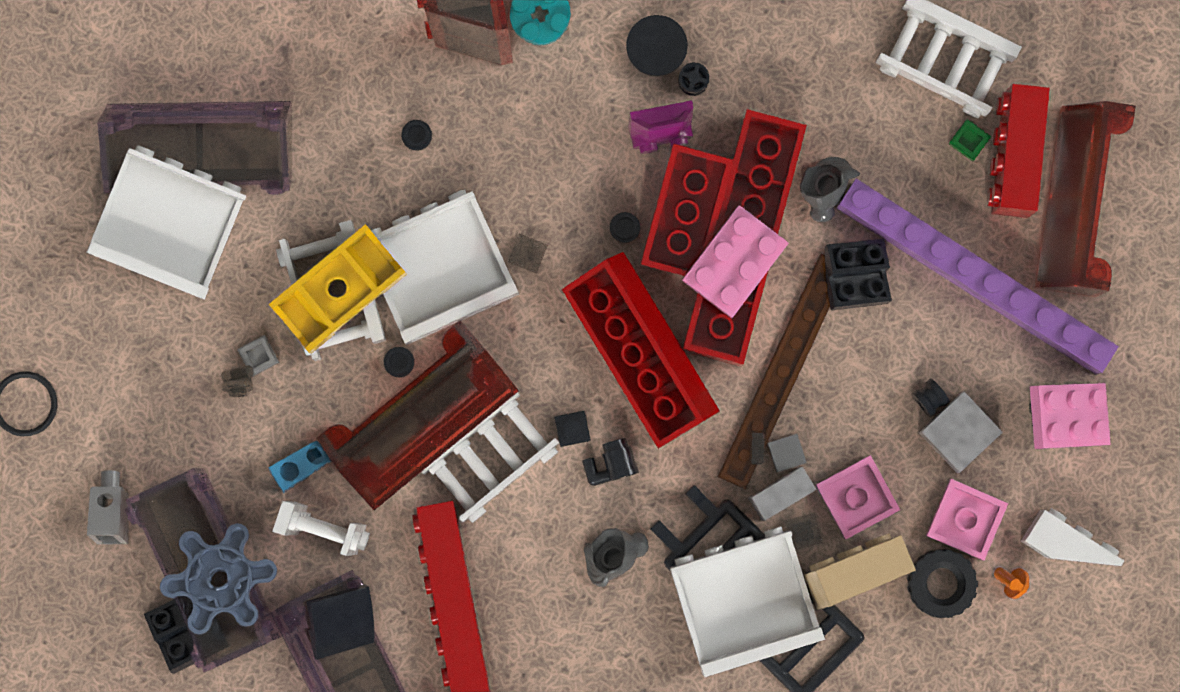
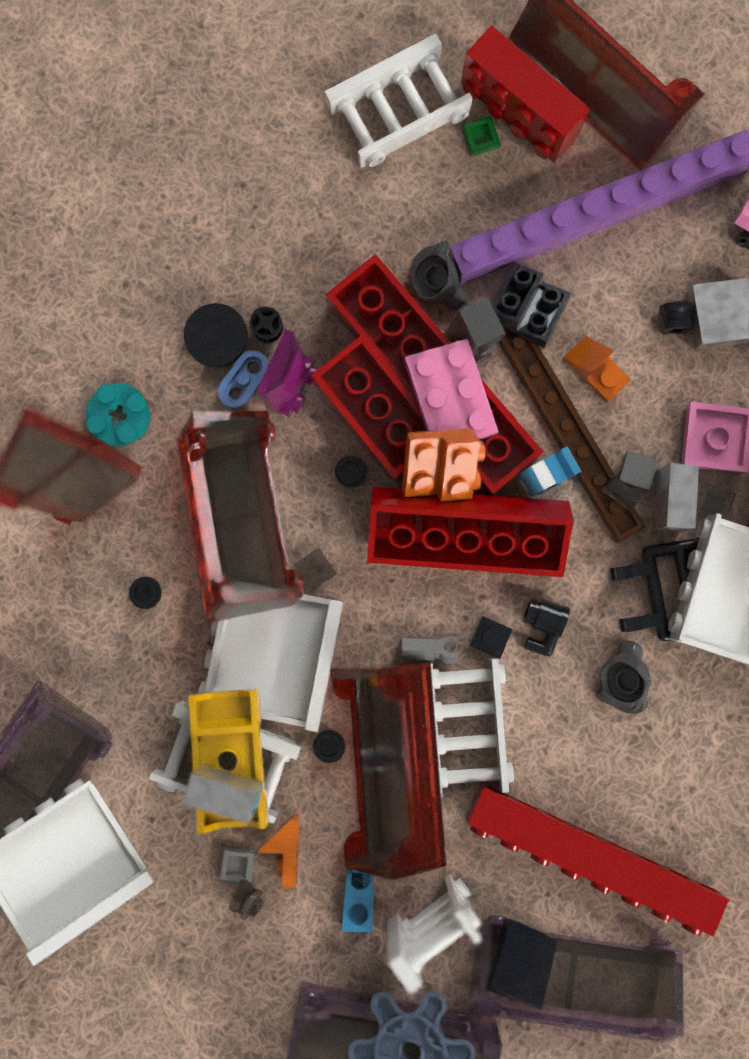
camera: 50 degrees left, 0 degrees up
(304, 379) = (286, 842): none -> orange slope
(316, 300) = (223, 793): none -> flat silver piece
(527, 161) = (235, 514): none -> windscreen
(528, 385) = (427, 649): none -> light grey bar
(637, 92) = (242, 379): none -> medium blue plate
(676, 292) = (442, 464): none -> orange plate
(732, 382) = (549, 472): none -> dark azure leg
(804, 247) = (480, 326): none -> dark grey brick
(846, 364) = (595, 366): none -> orange slope

